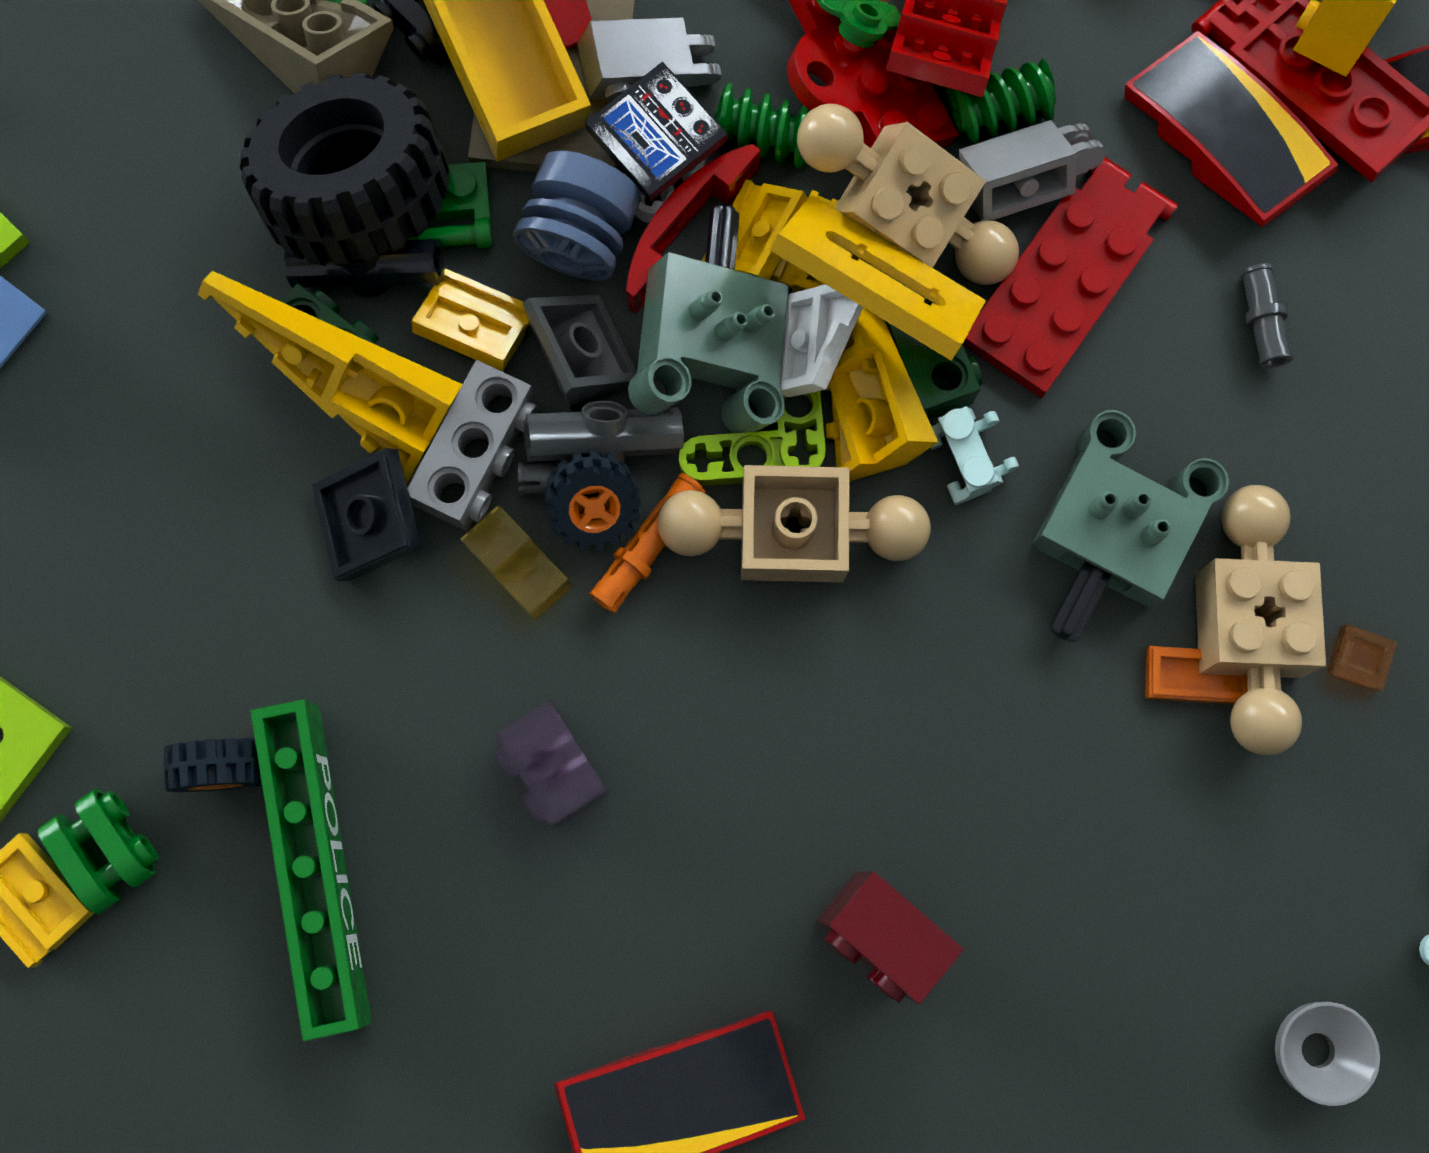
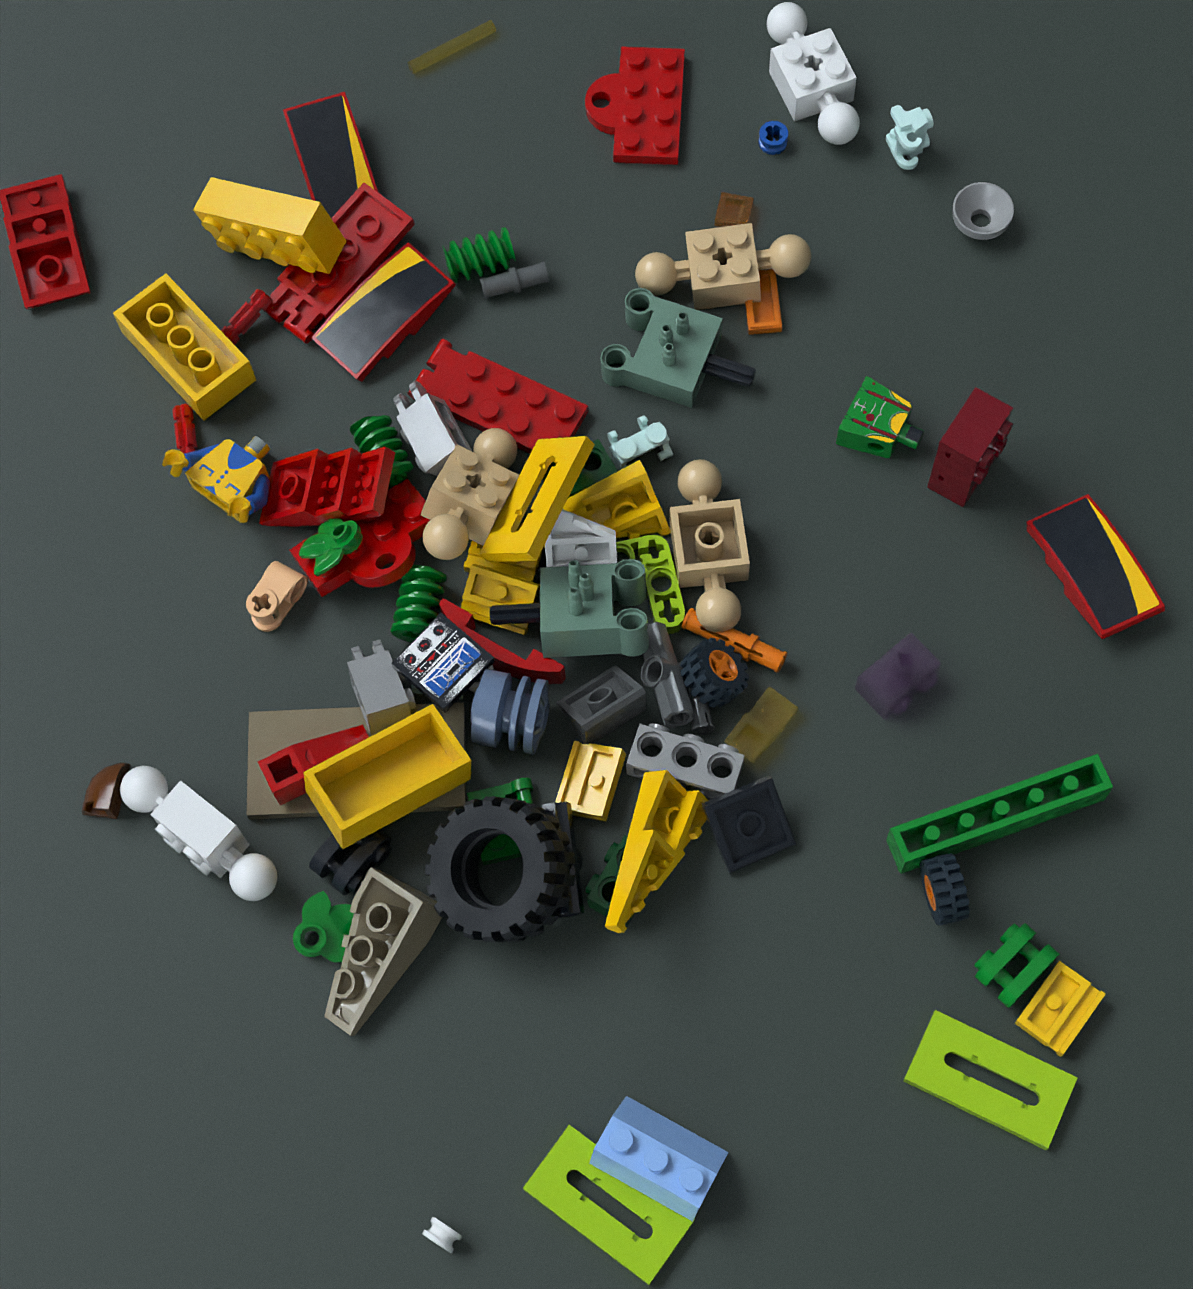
camera: 90 degrees left, 10 degrees down
(967, 812) = (878, 421): none -> green torso
(1305, 264) = (479, 255): none -> green piece

